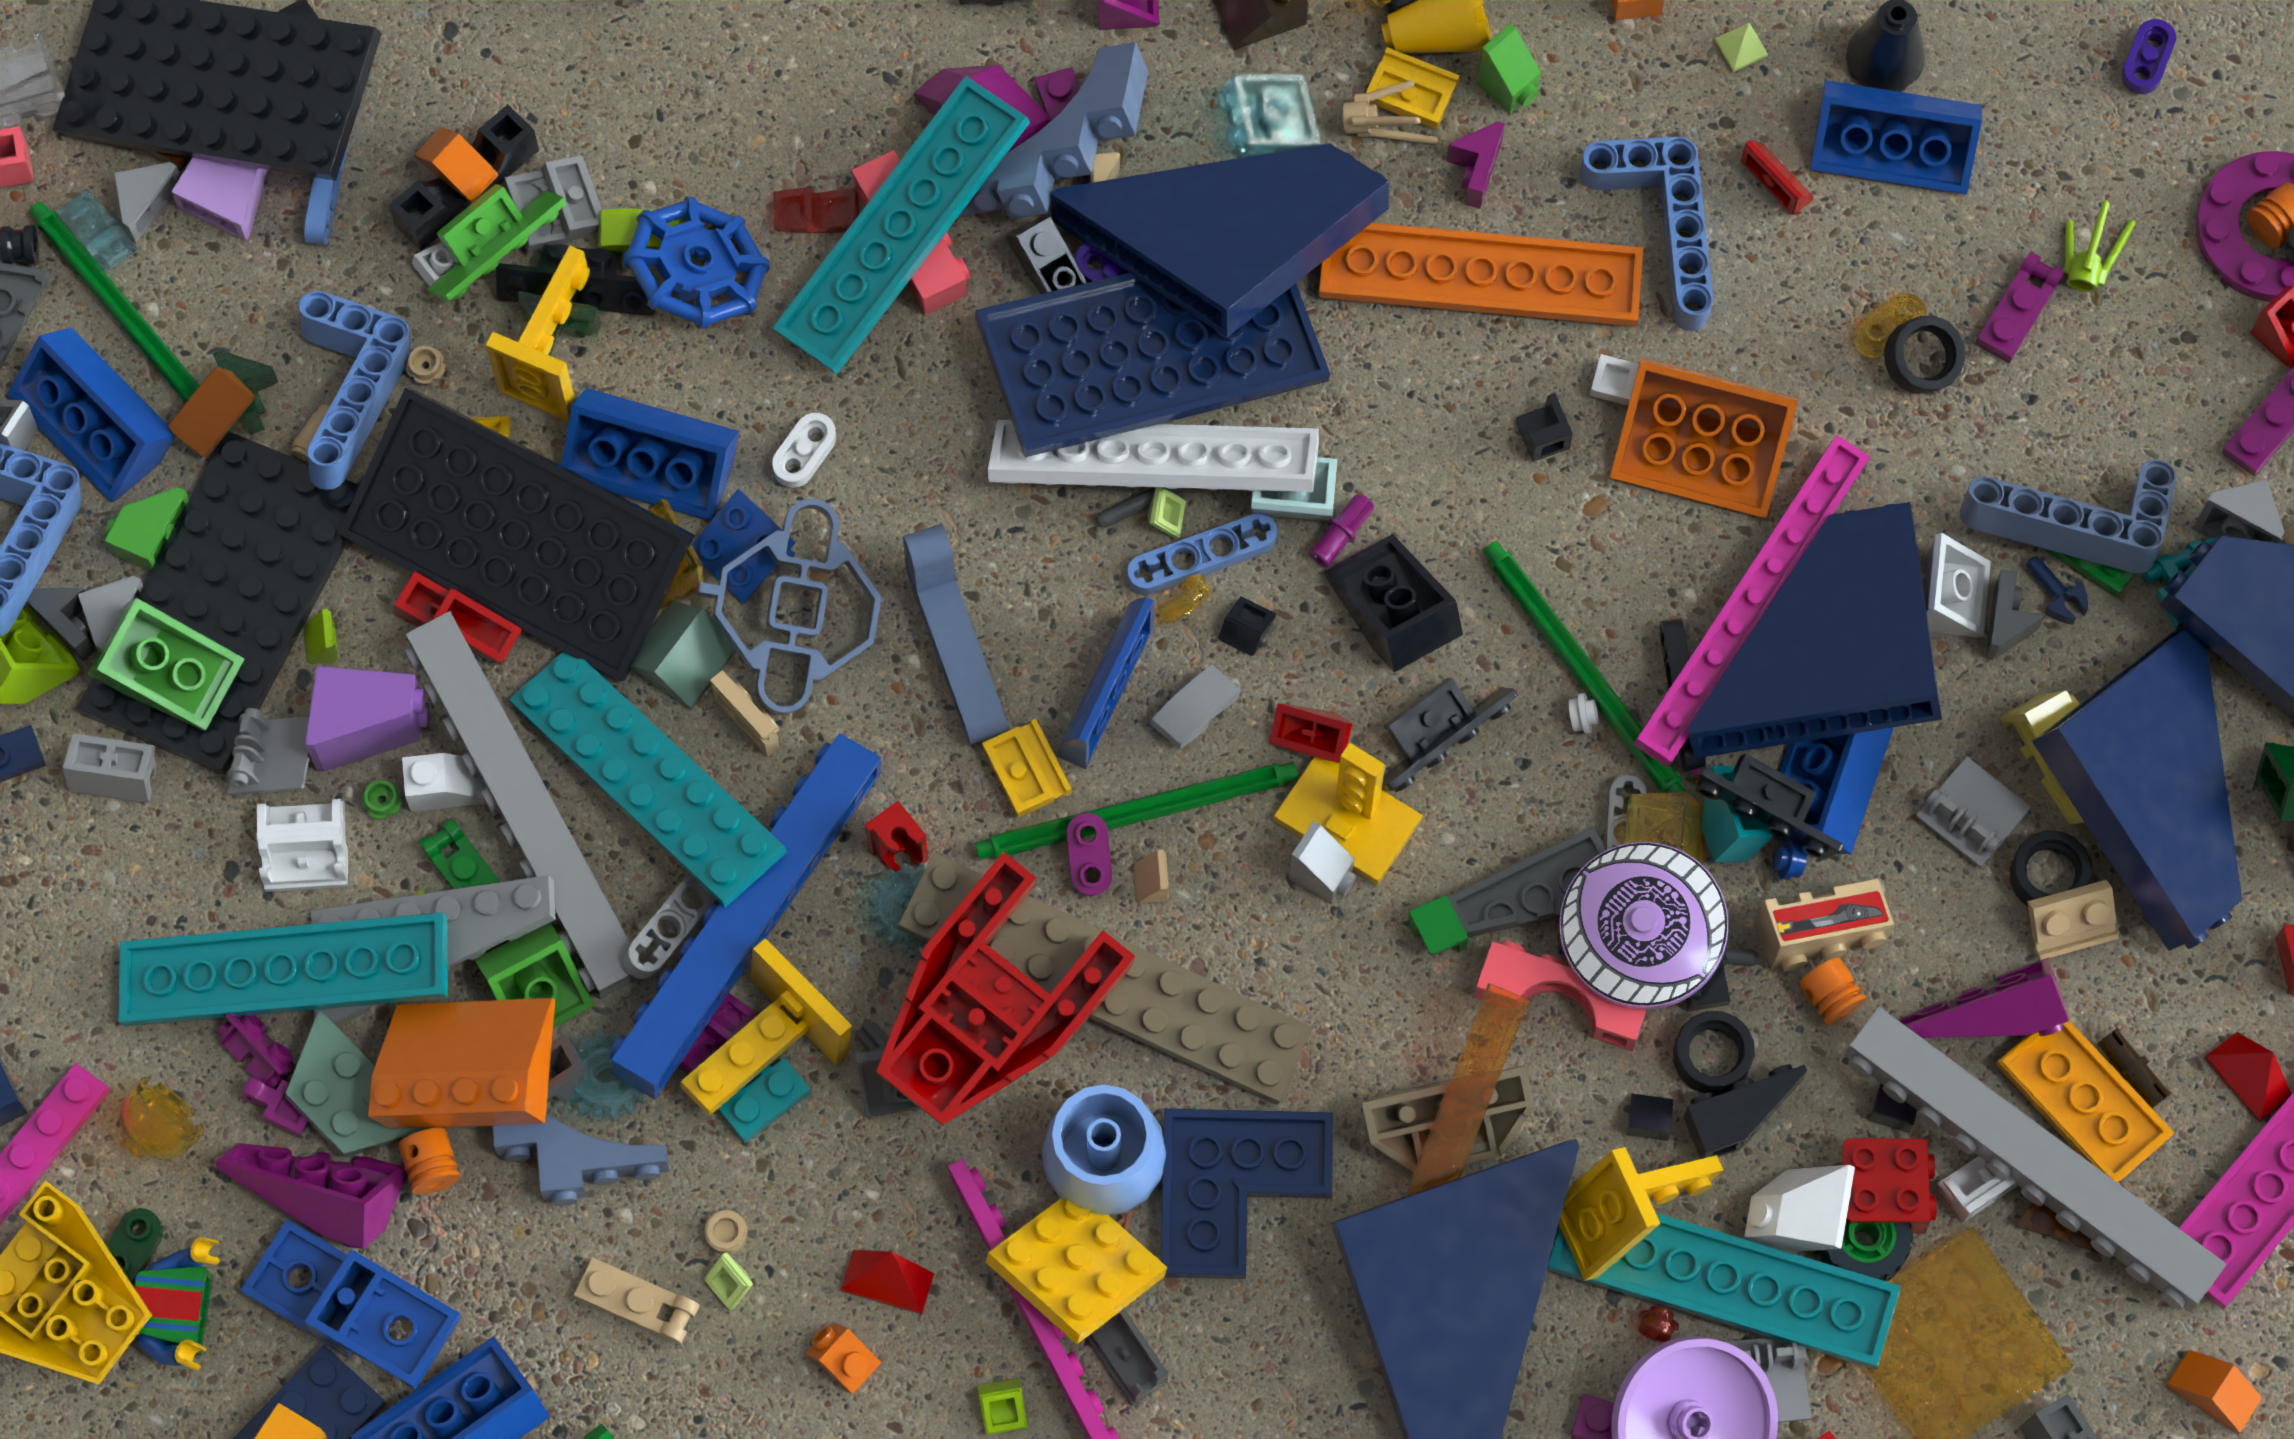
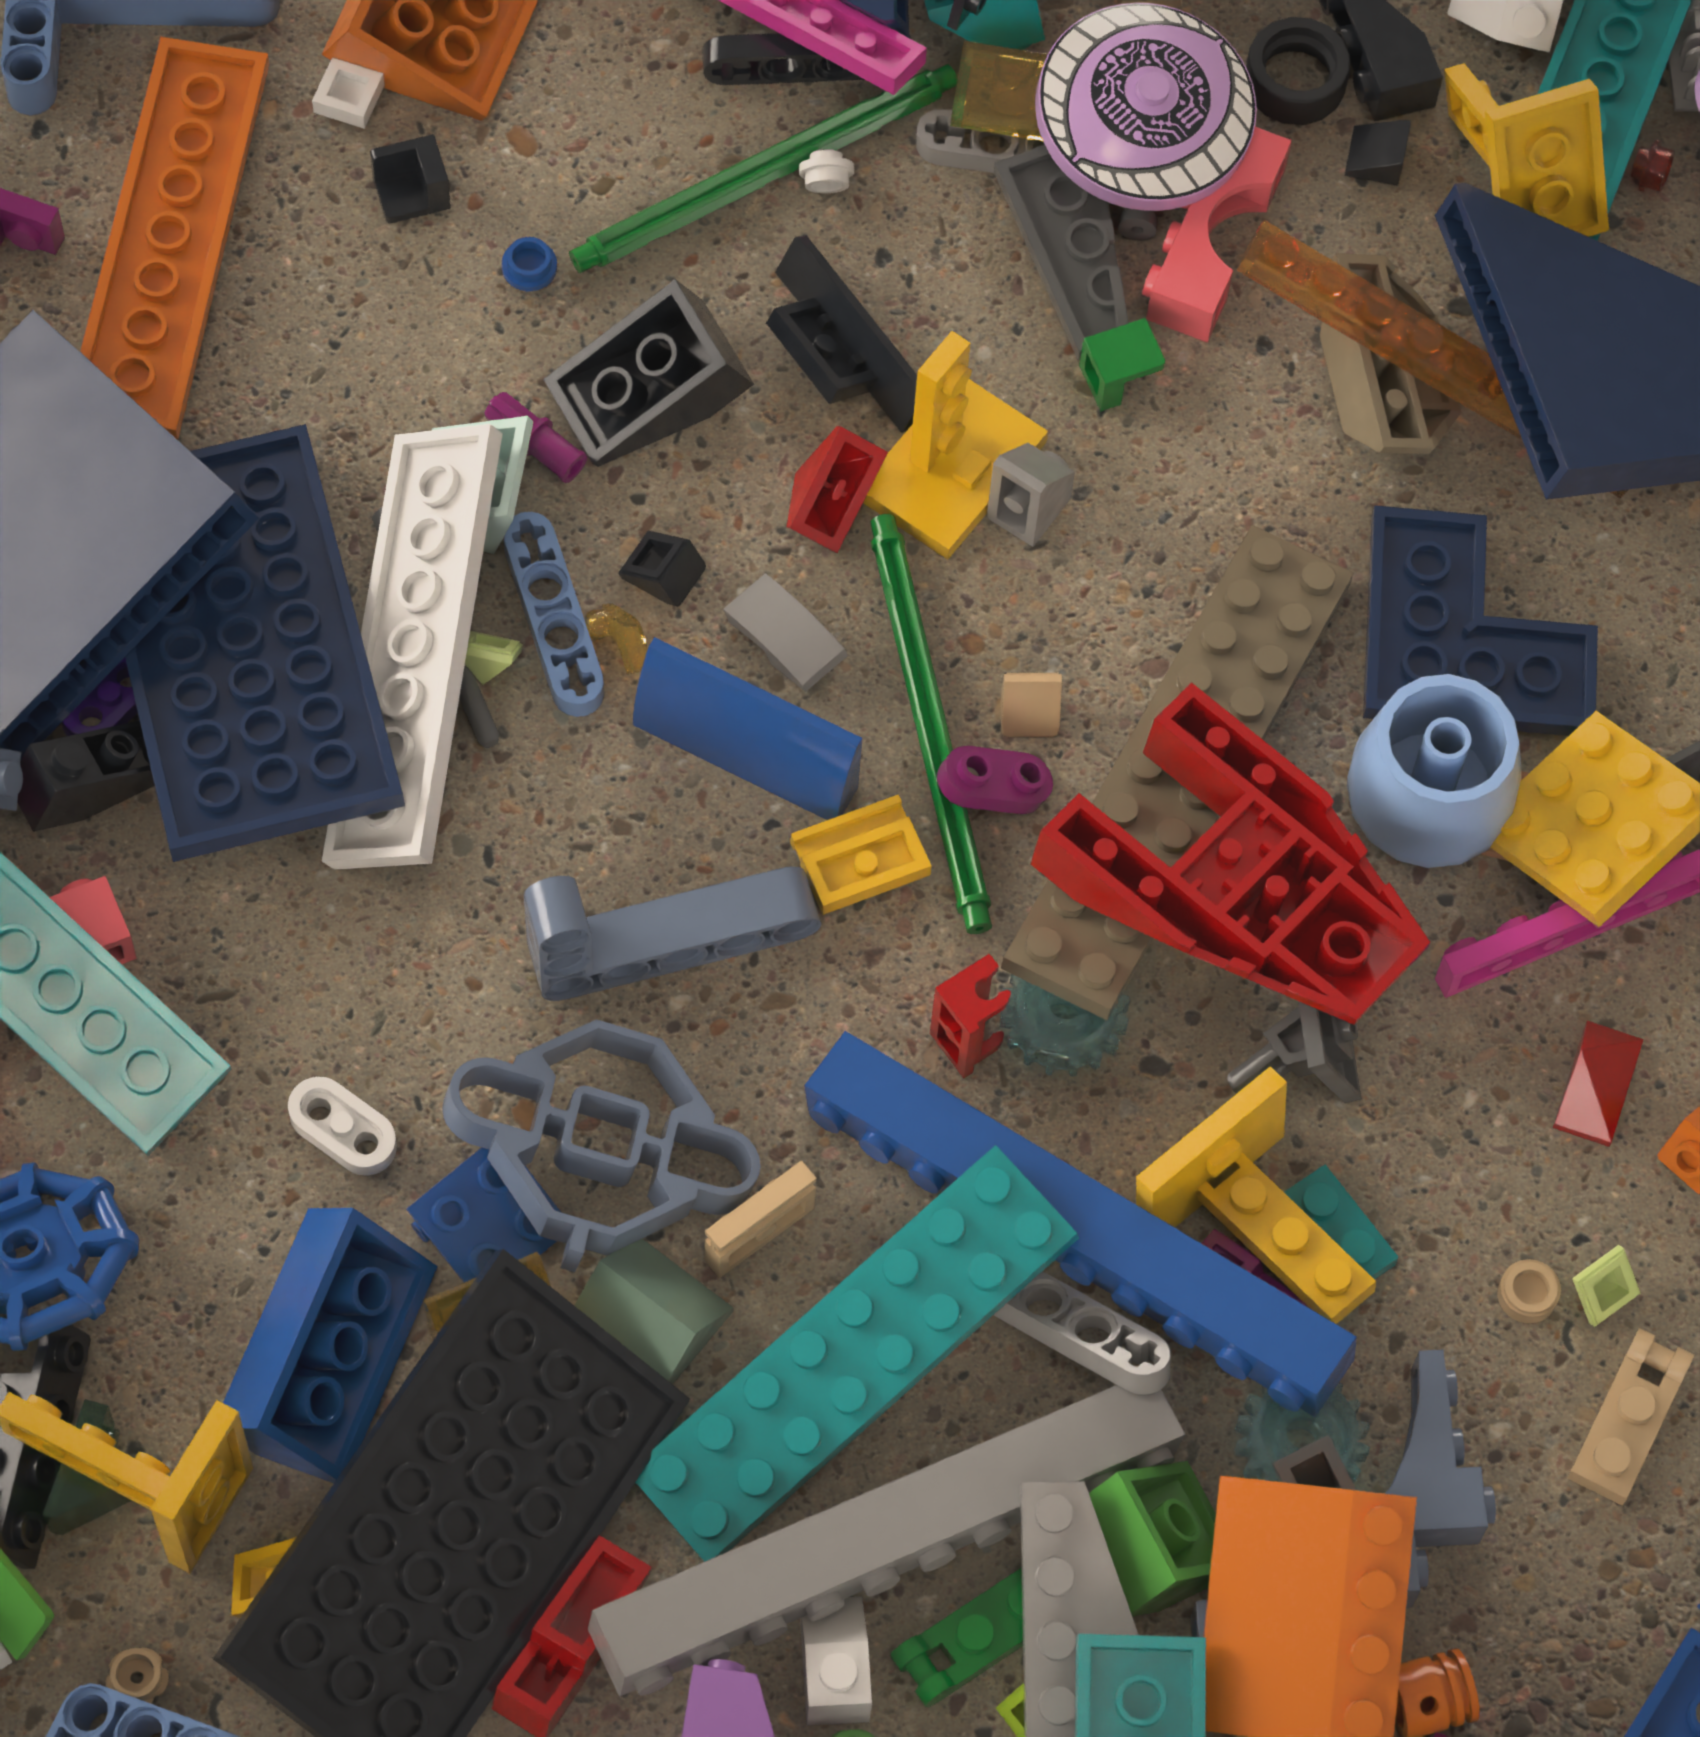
camera: 90 degrees left, 5 degrees down
(1484, 516) = (529, 264): none -> blue plate

